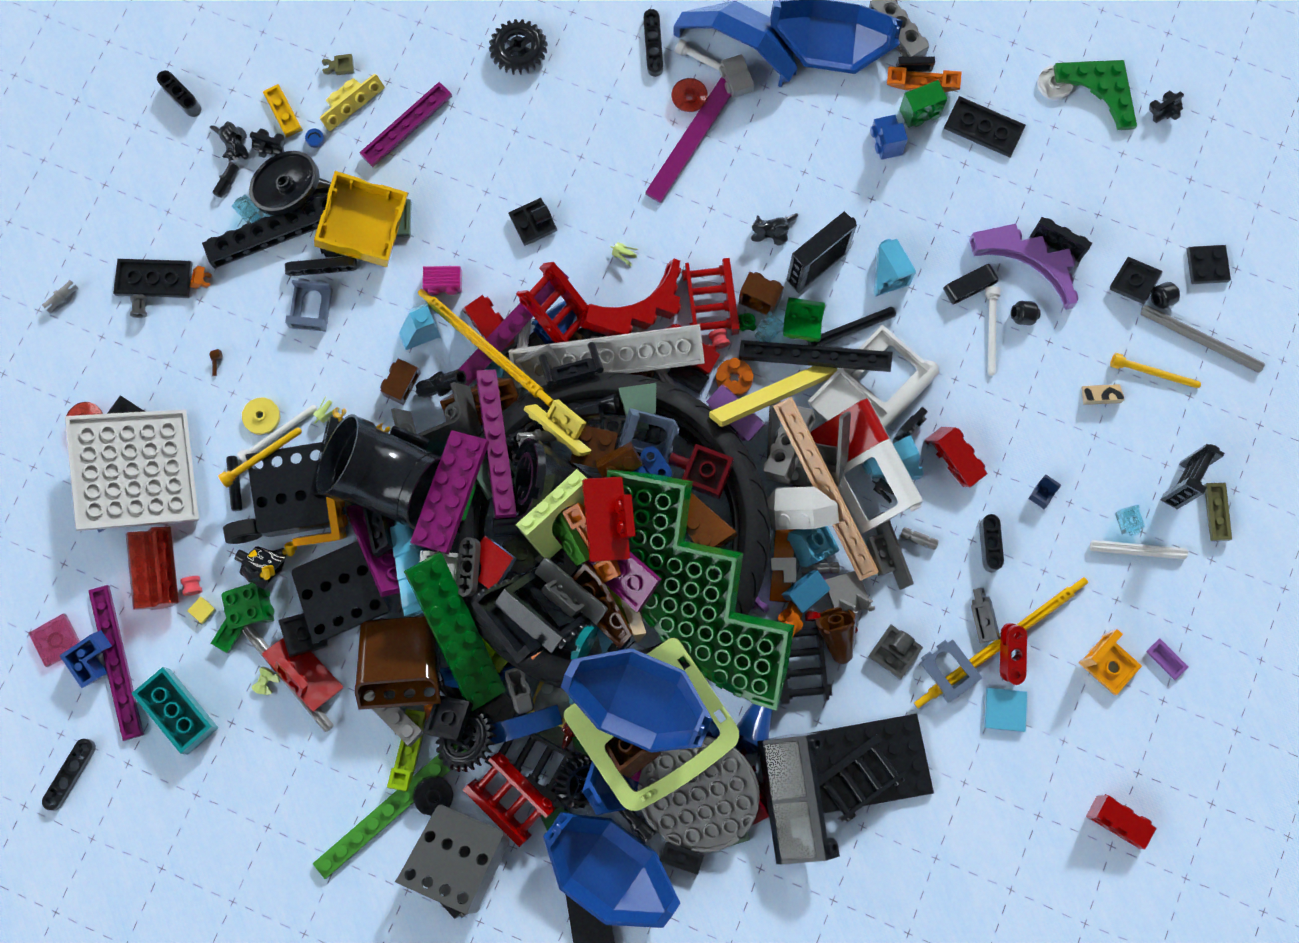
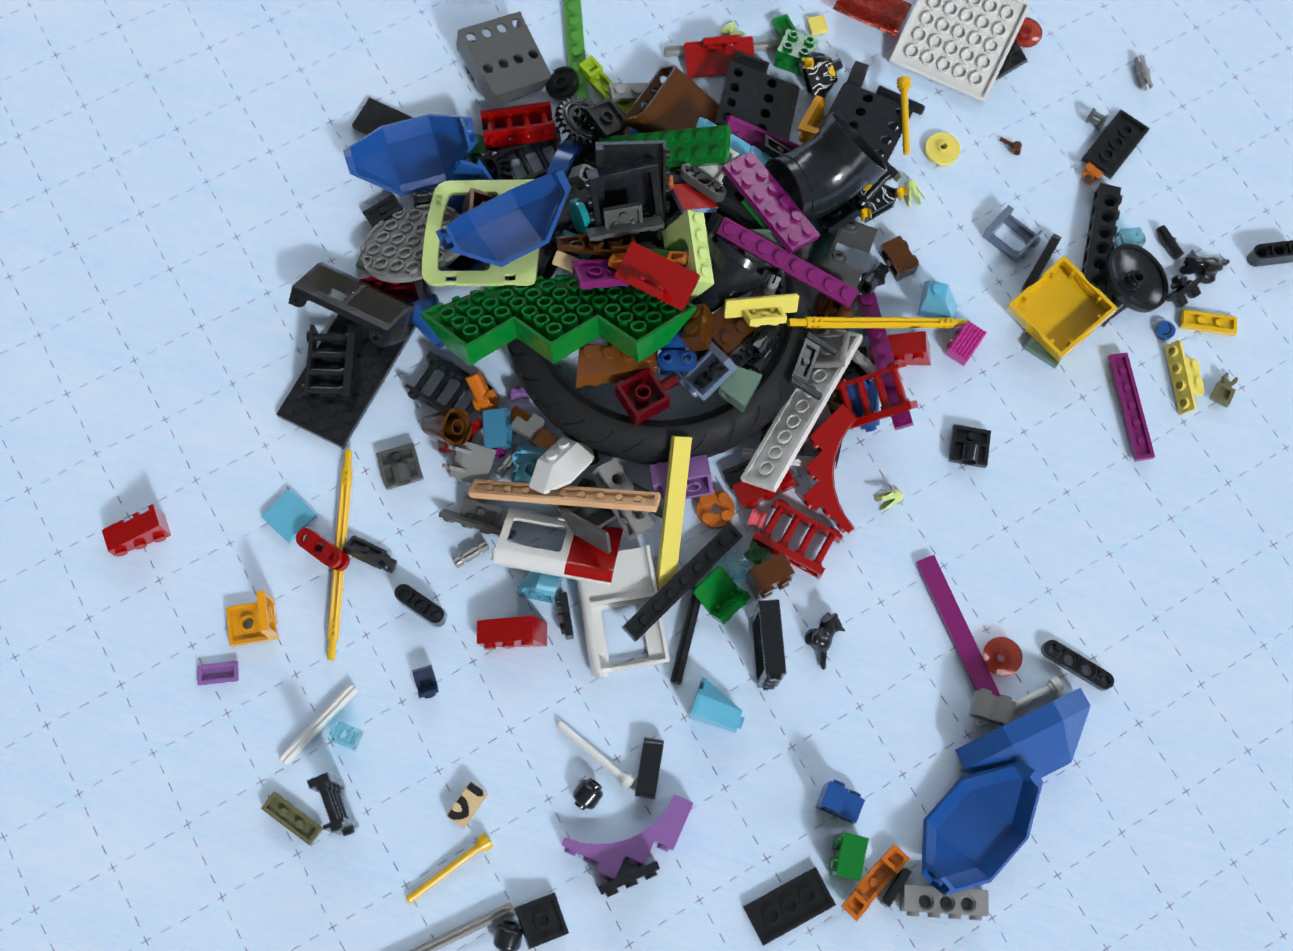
camera: 120 degrees right, 5 degrees down
(191, 585) = (840, 27): coral wheel -> none
(276, 434) = (916, 120): white piece -> none
(522, 56) = (1142, 551): black gear -> none
(930, 666) = (369, 505): sand blue panel -> none

